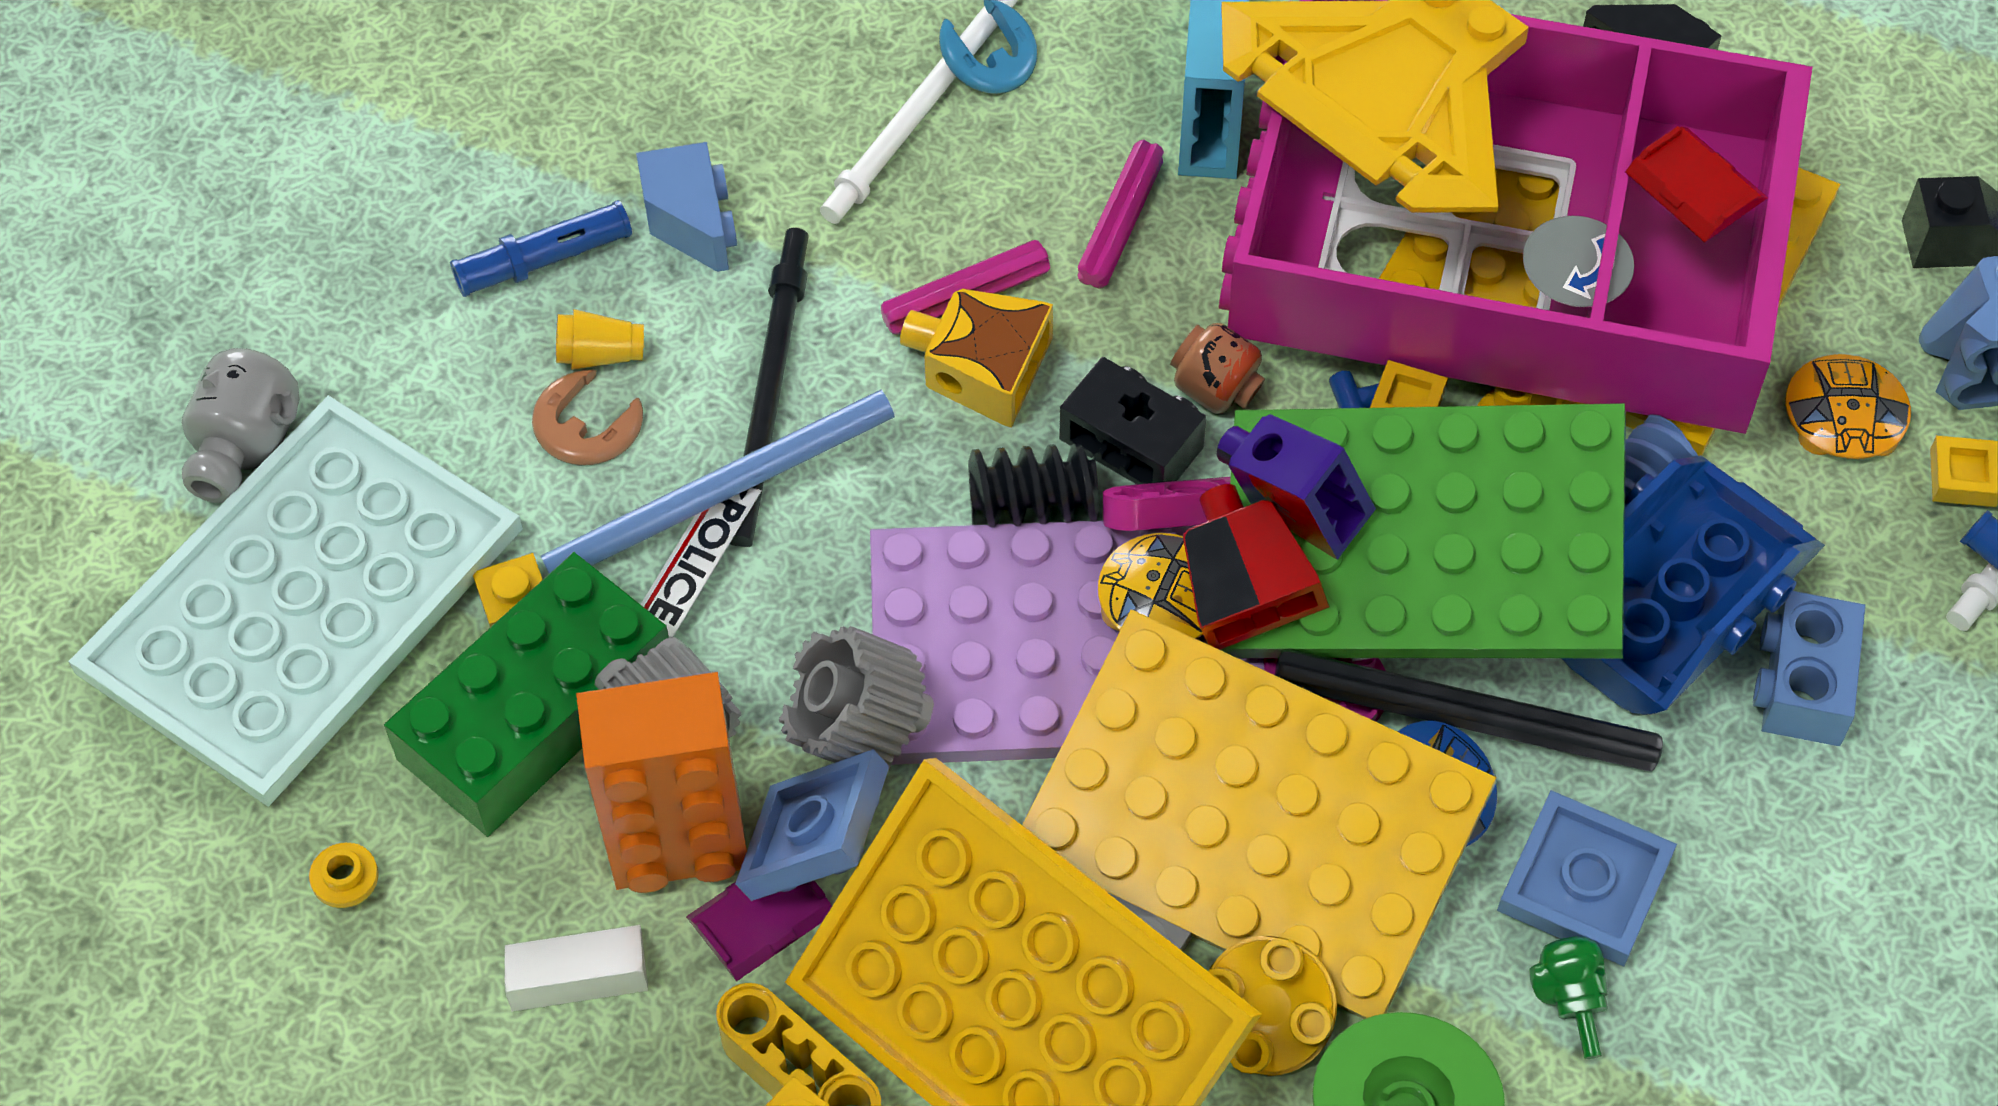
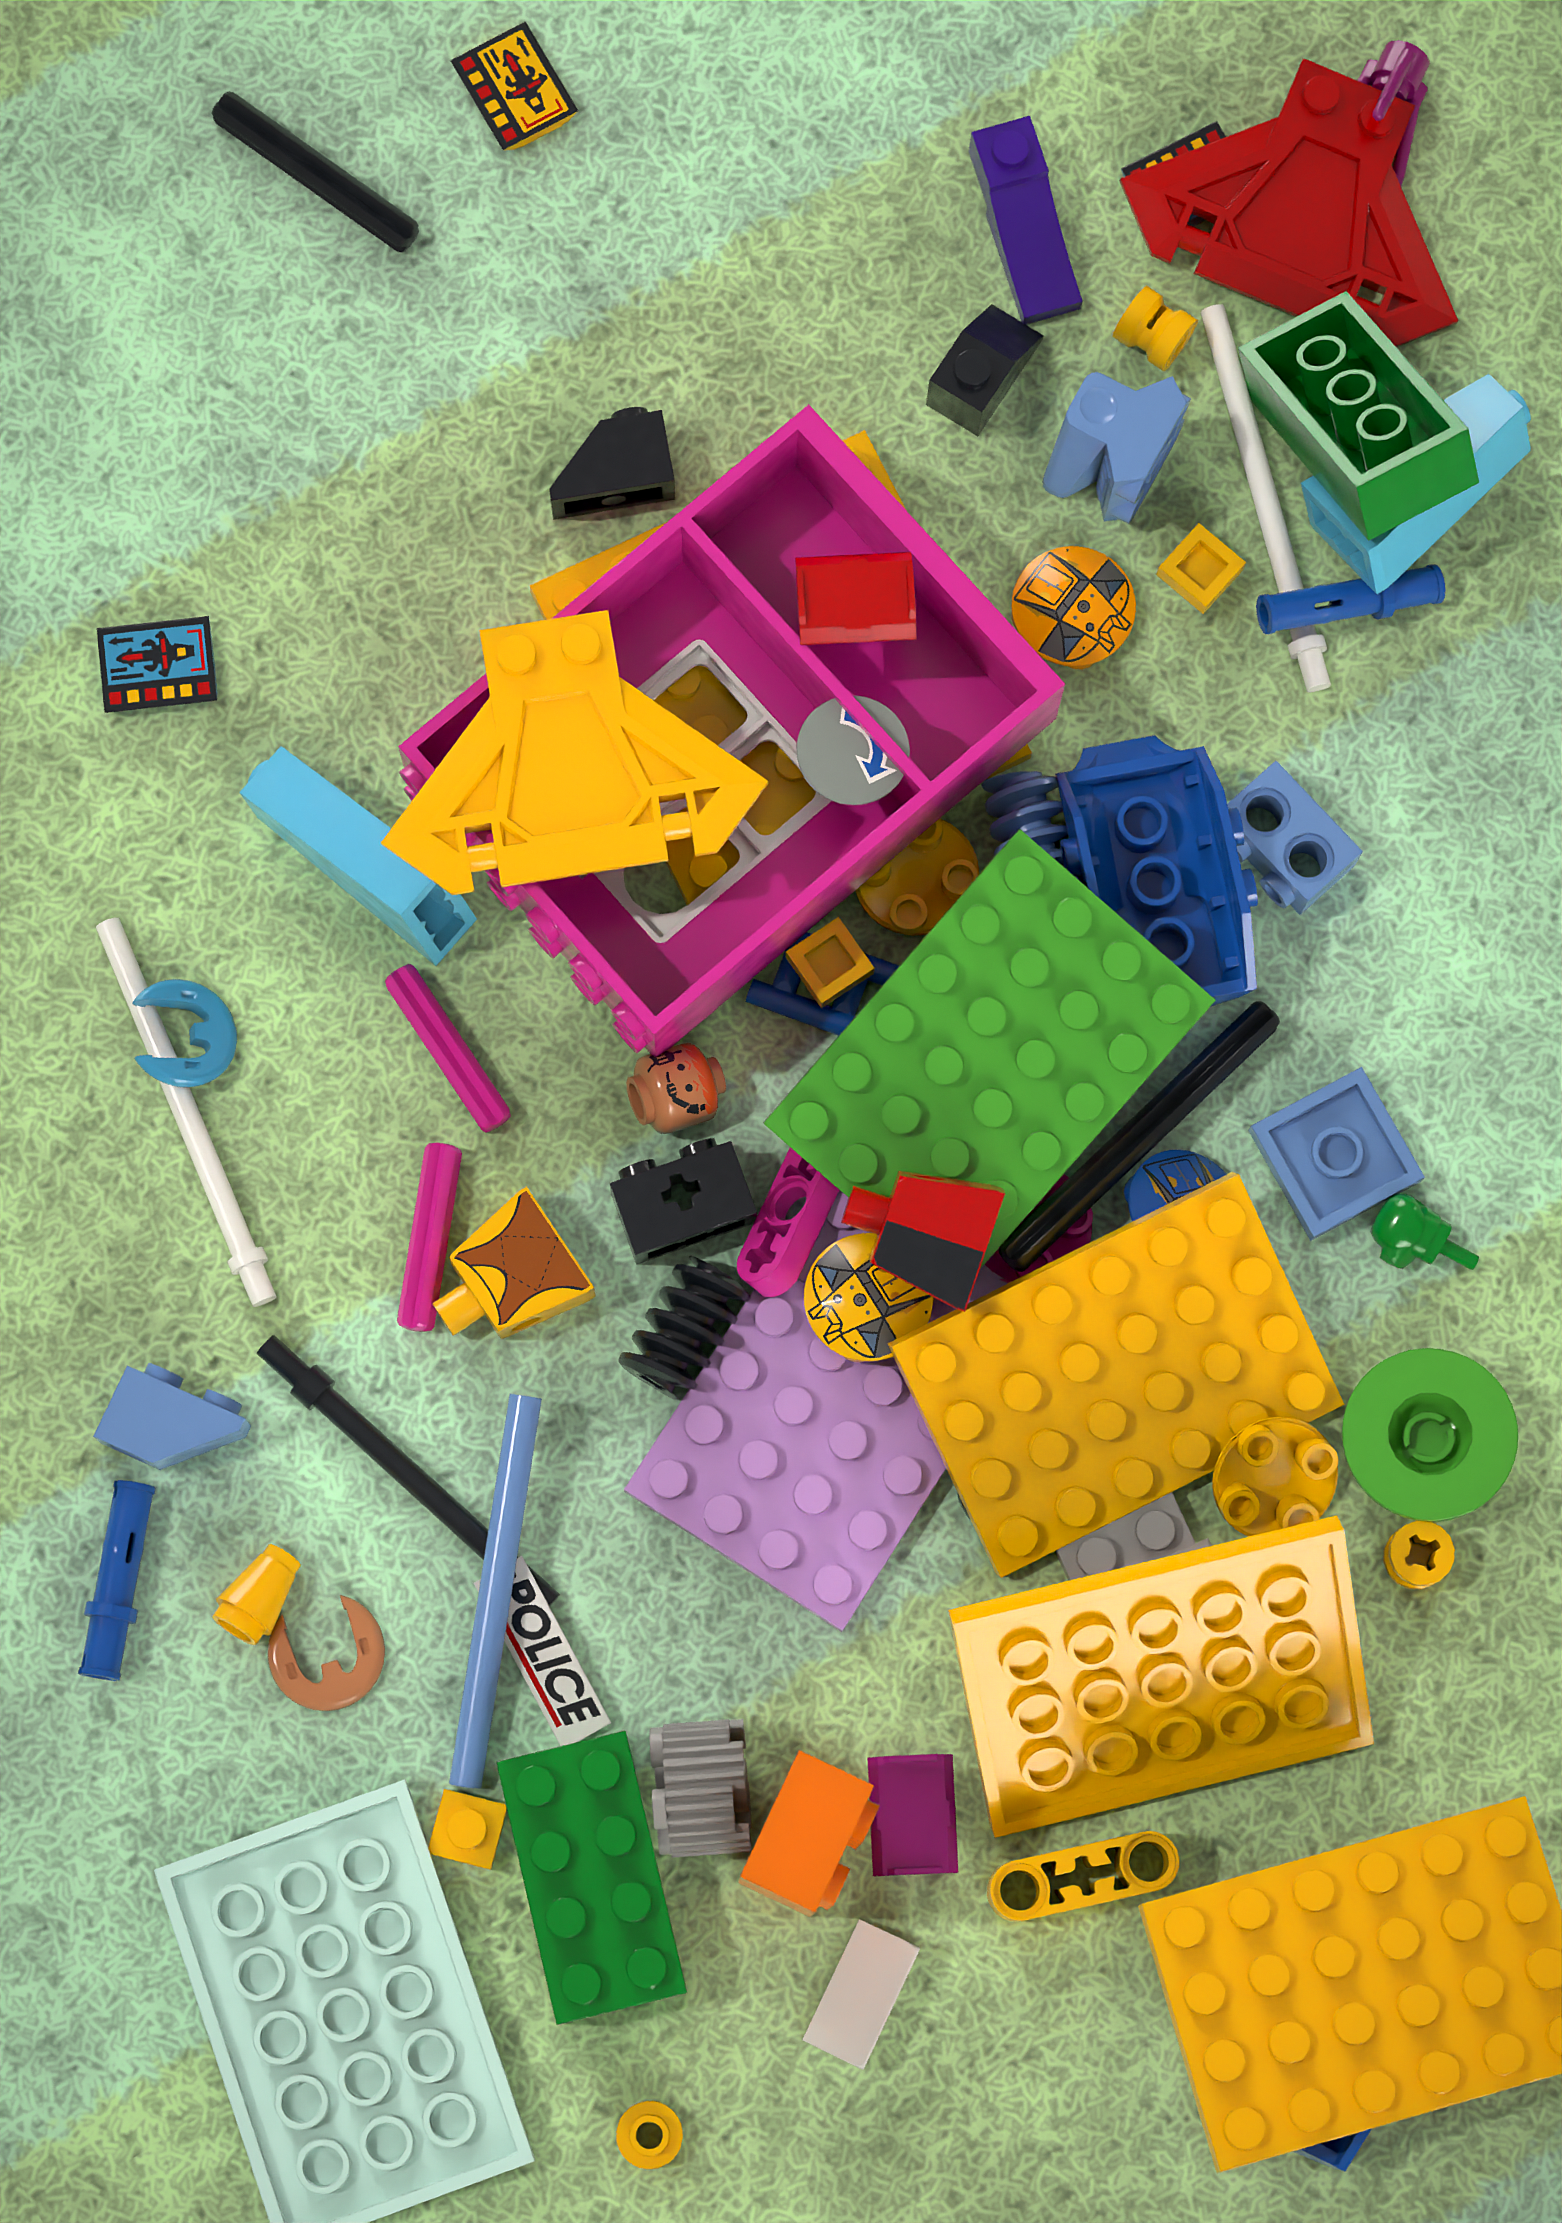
camera: 60 degrees left, 20 degrees up
(236, 420) = (122, 1965): light grey piece -> none
(813, 825) = (892, 1729): medium blue plate -> none
(855, 696) = (805, 1620): light grey brick -> none
(1302, 477) = (919, 1137): dark purple torso -> none

